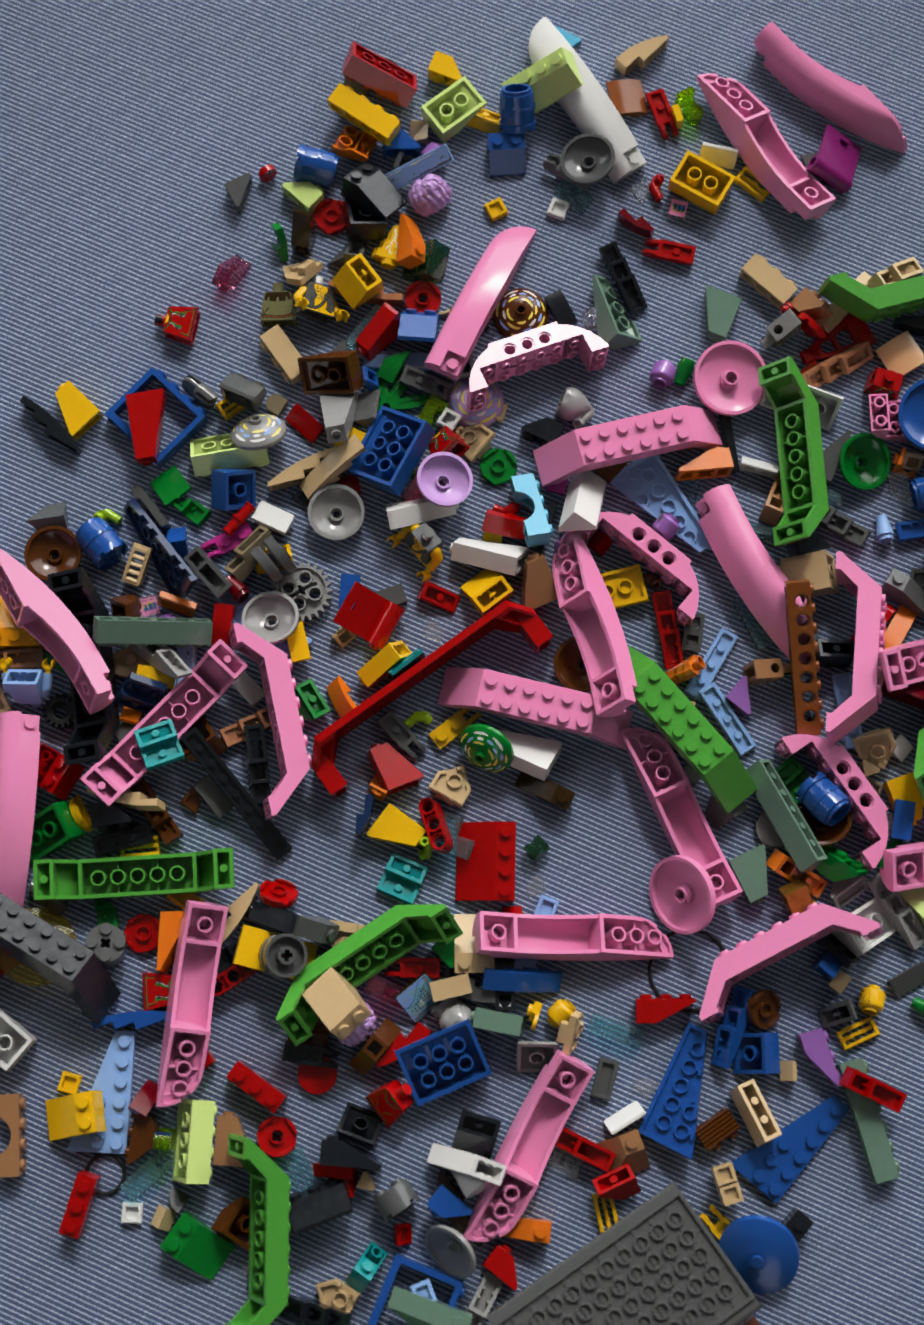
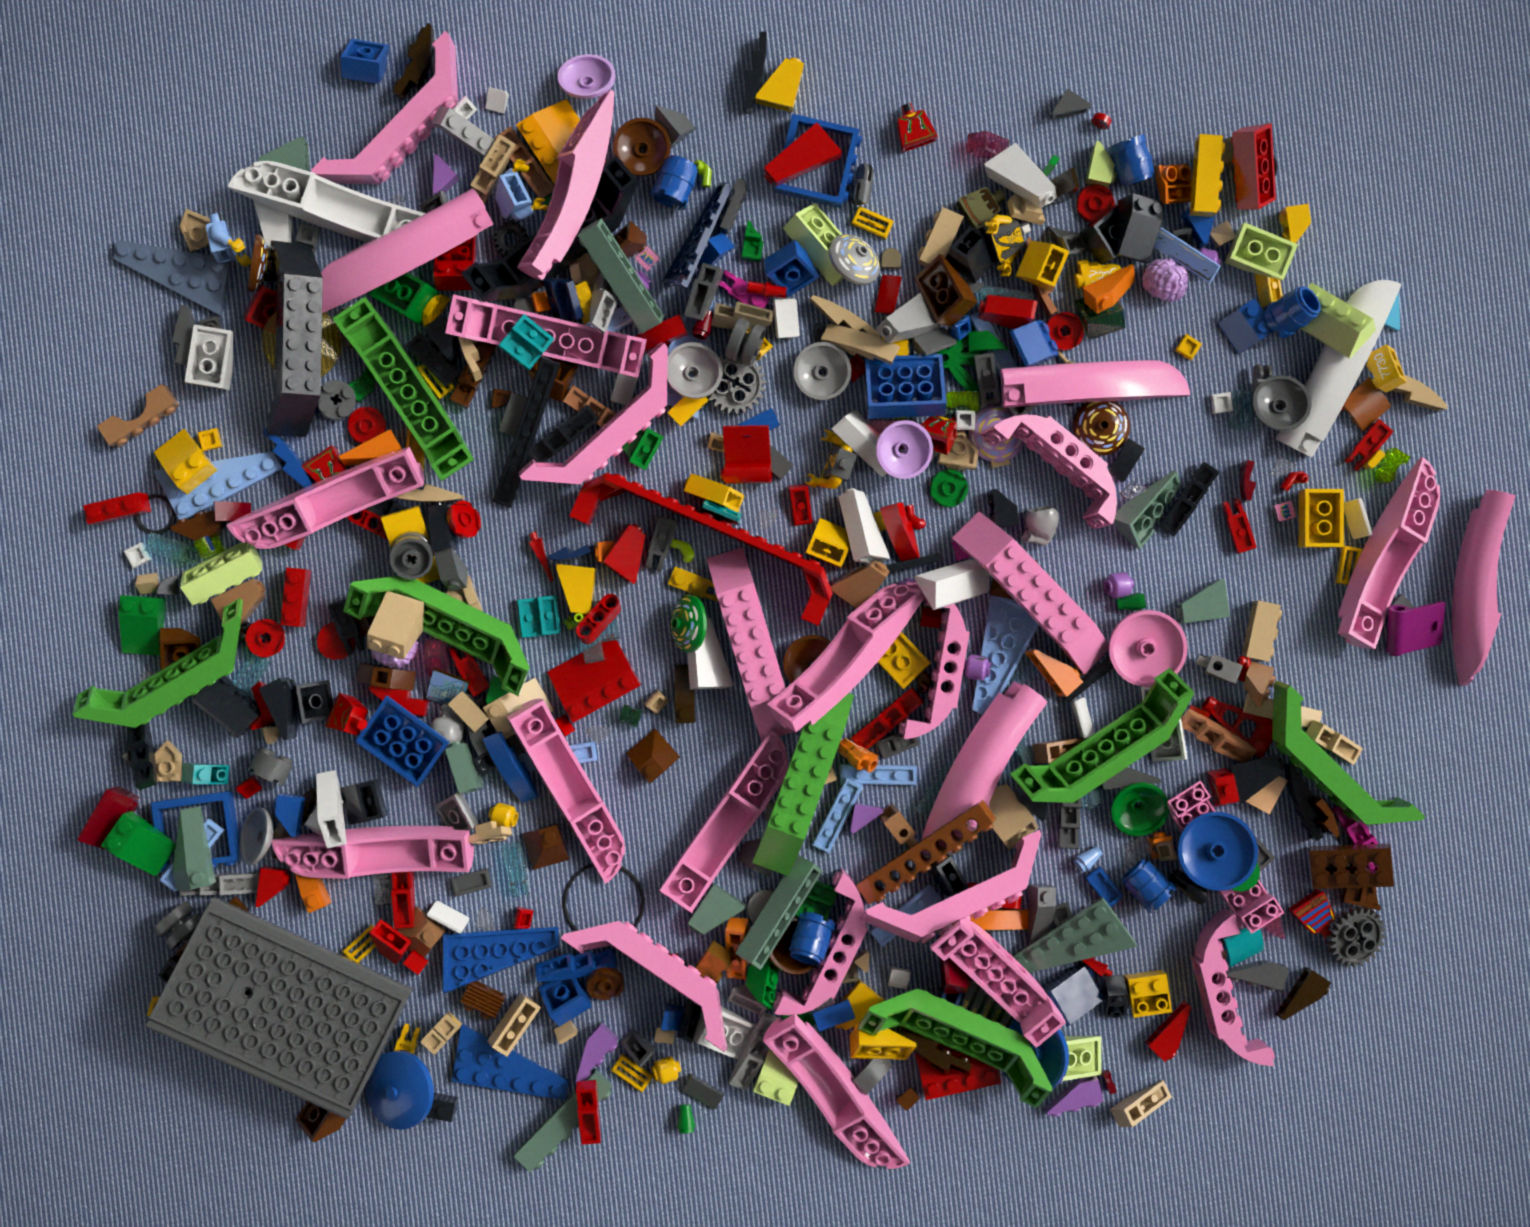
camera: 55 degrees right, 10 degrees up
(137, 581) = (663, 228): tan slope -> none
(170, 486) = (763, 211): green piece -> none
(176, 604) = (660, 281): orange tile -> none
(242, 391) = (883, 223): dark grey slope -> none
(273, 258) = (1021, 175): none -> white slope
(313, 335) = (971, 255): none -> black slope
(339, 696) = (665, 467): orange slope -> none
(343, 844) = (538, 548): none -> red piece
(451, 786) = (641, 612): tan plate -> none
(526, 492) = (937, 525): medium azure arch -> none
(533, 1012) = (488, 792): yellow hinge -> none
(537, 819) = (656, 701): none -> tan slope
(583, 849) = (652, 755): none -> reddish brown slope
(608, 65) = (1385, 369): none -> yellow brick
(610, 992) = (545, 846): none -> reddish brown slope
(649, 1172) = (415, 962): none -> red slope
(656, 1009) = (552, 893): red slope -> none
(663, 1050) = (523, 918): none -> red slope
(682, 894) = (659, 862): bright pink dish -> none
(811, 328) = (1237, 694): red tile -> none
(876, 746) = (887, 956): tan plate -> none
(889, 350) = (1255, 775): none -> black slope

